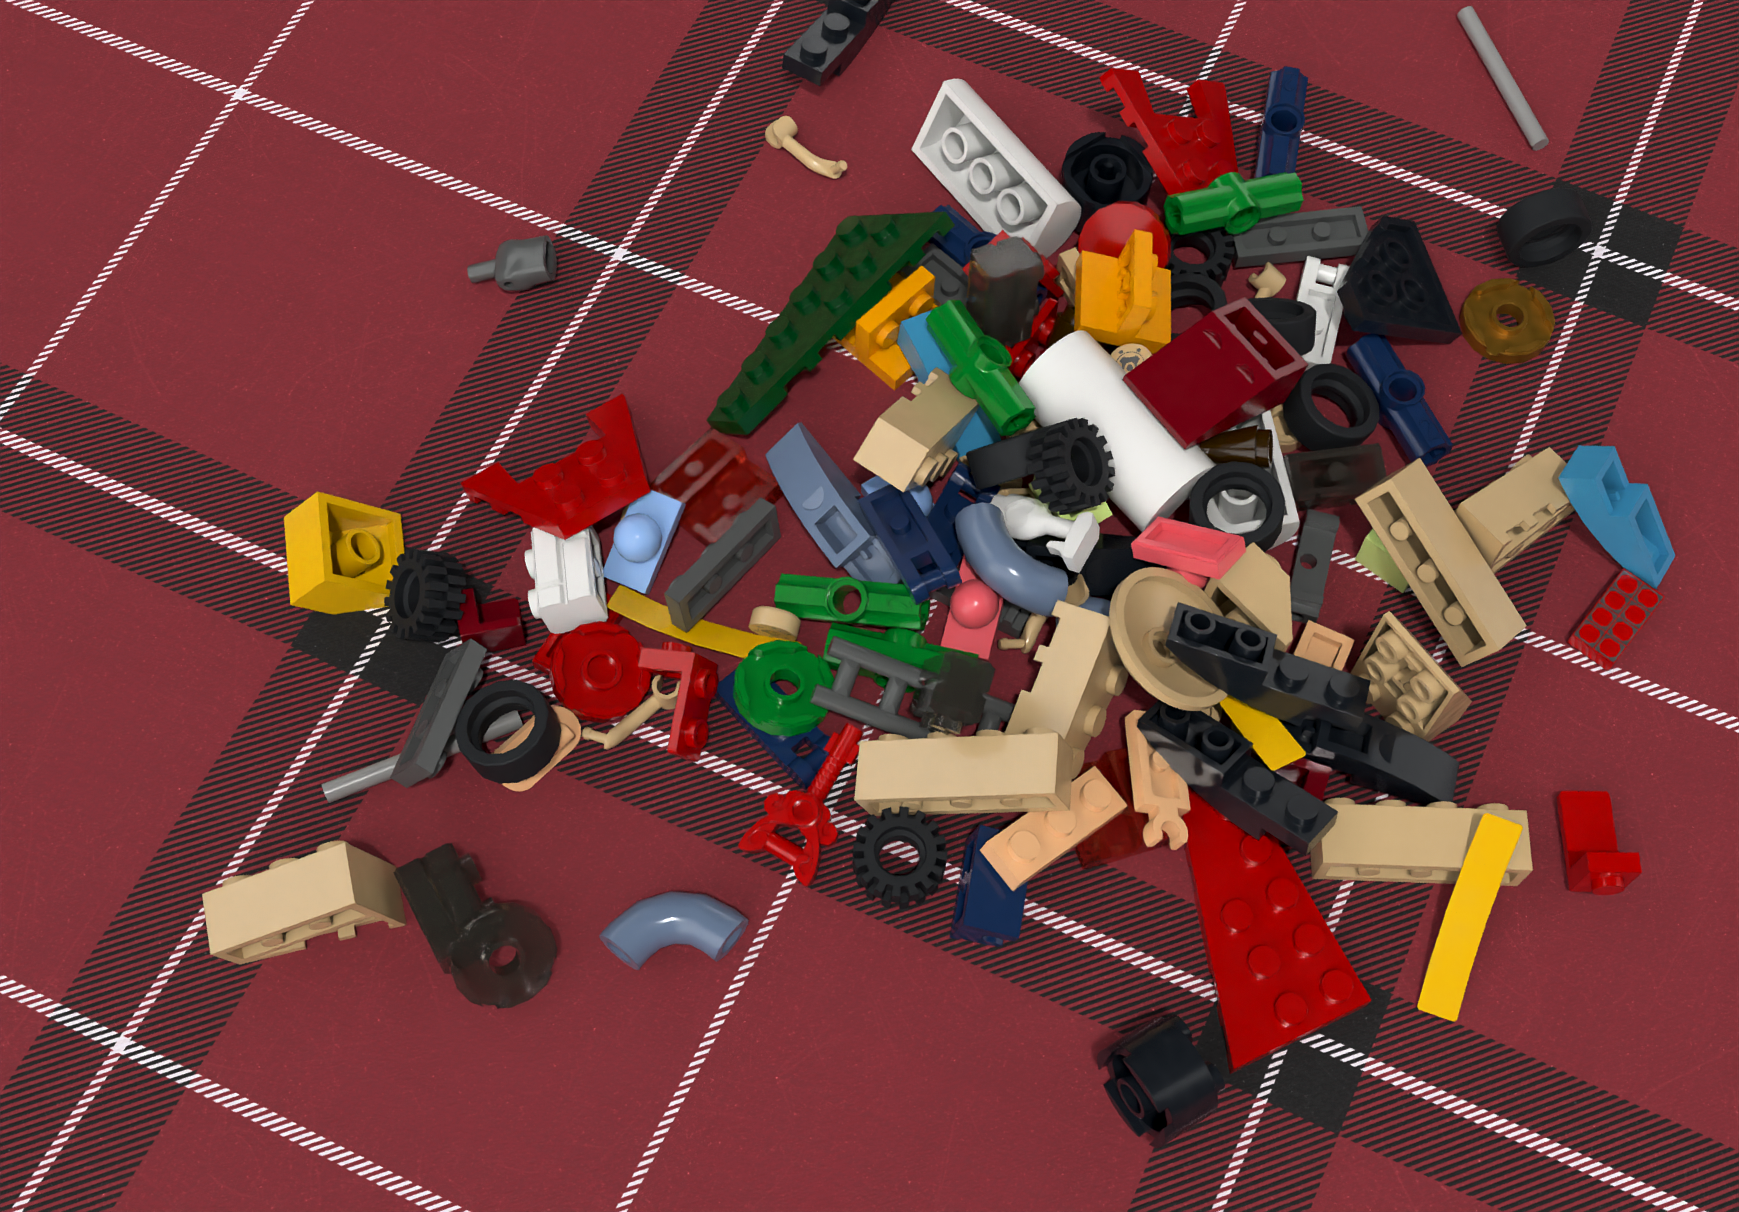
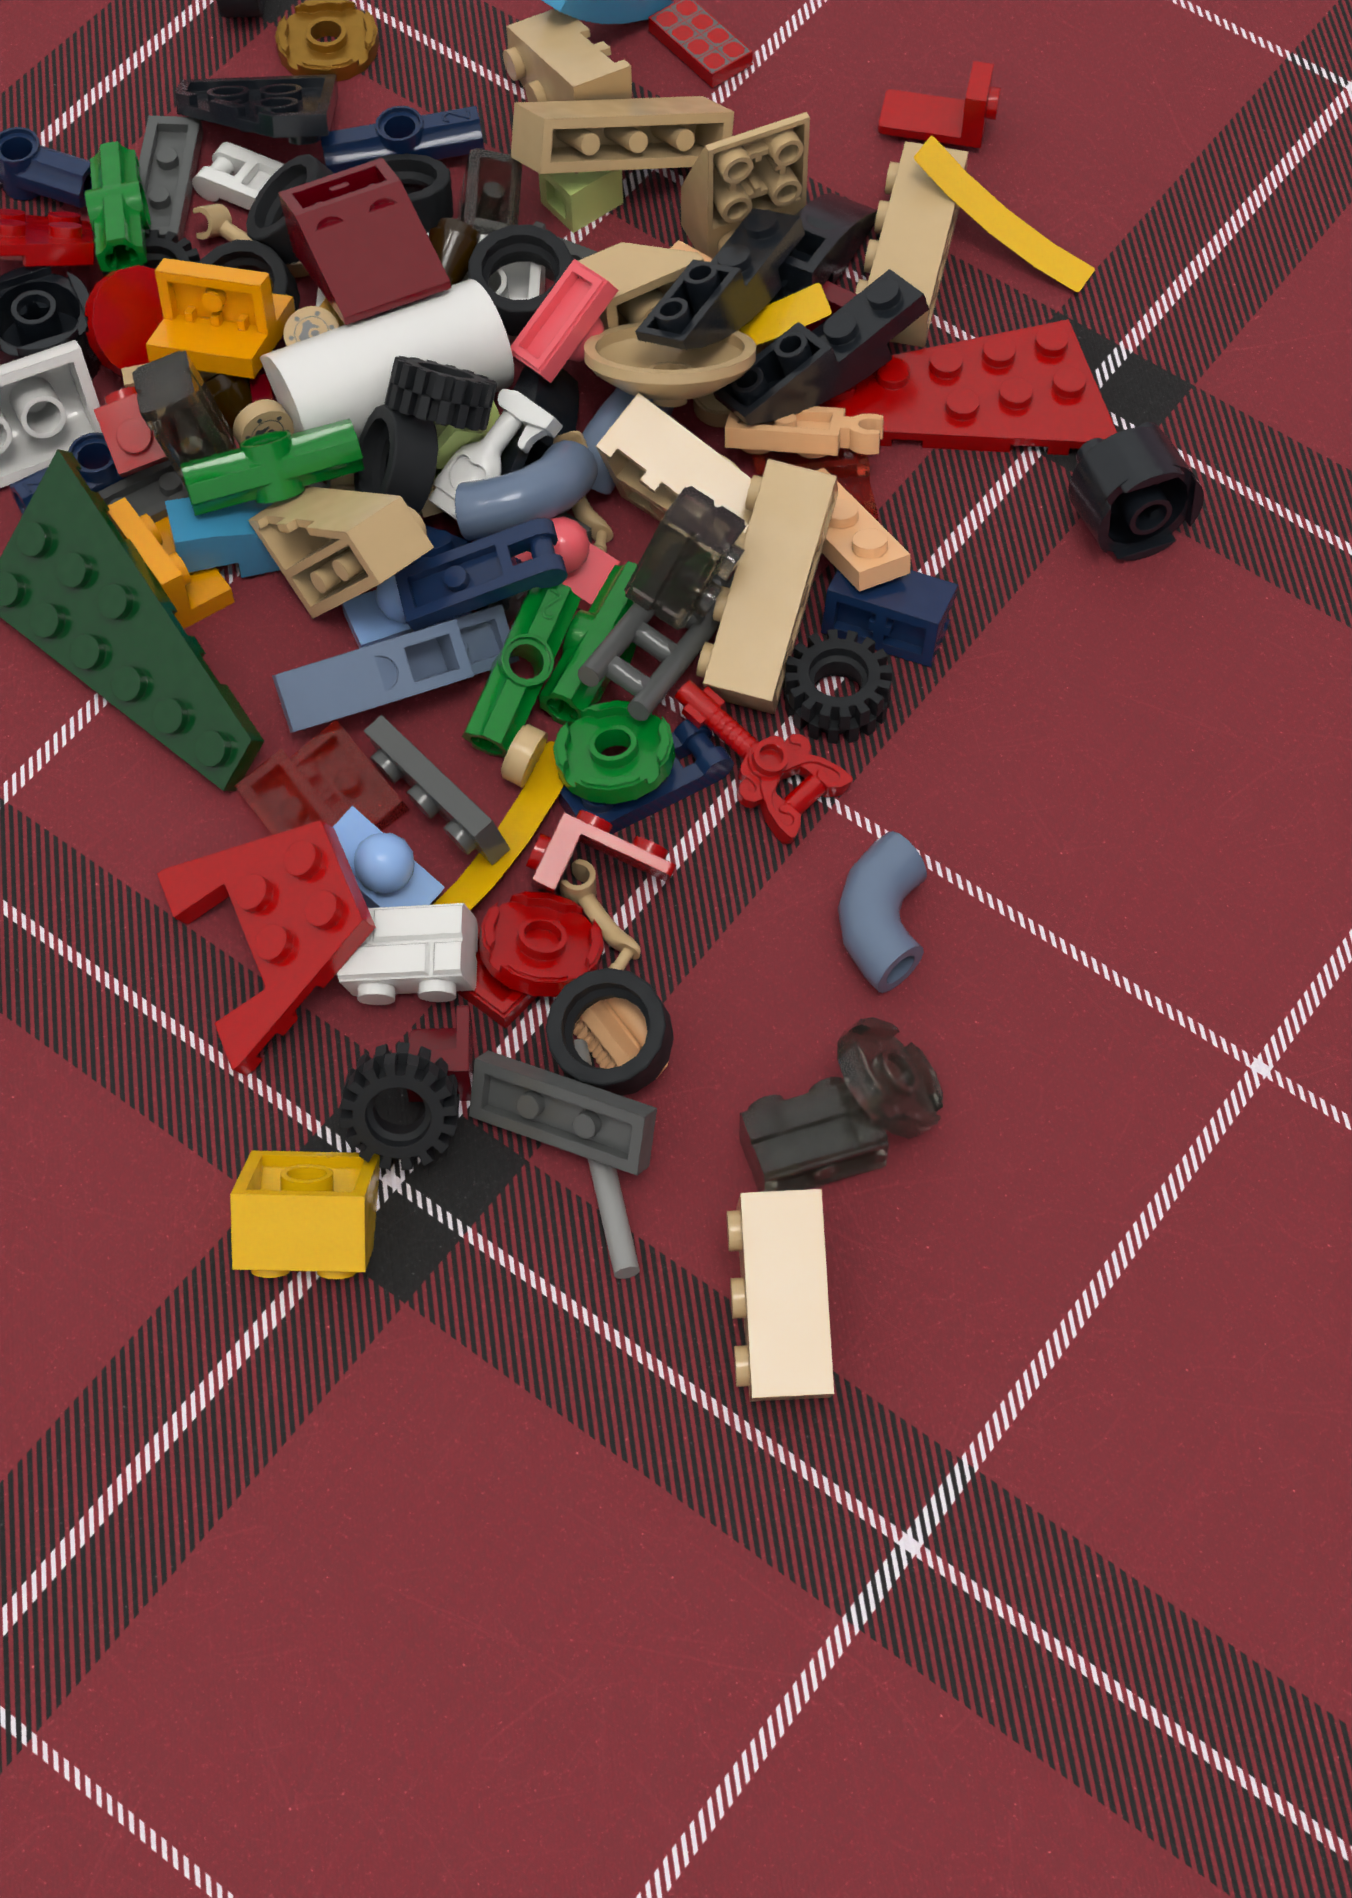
camera: 75 degrees left, 5 degrees down
(1025, 350) = (261, 418): none -> tan tile

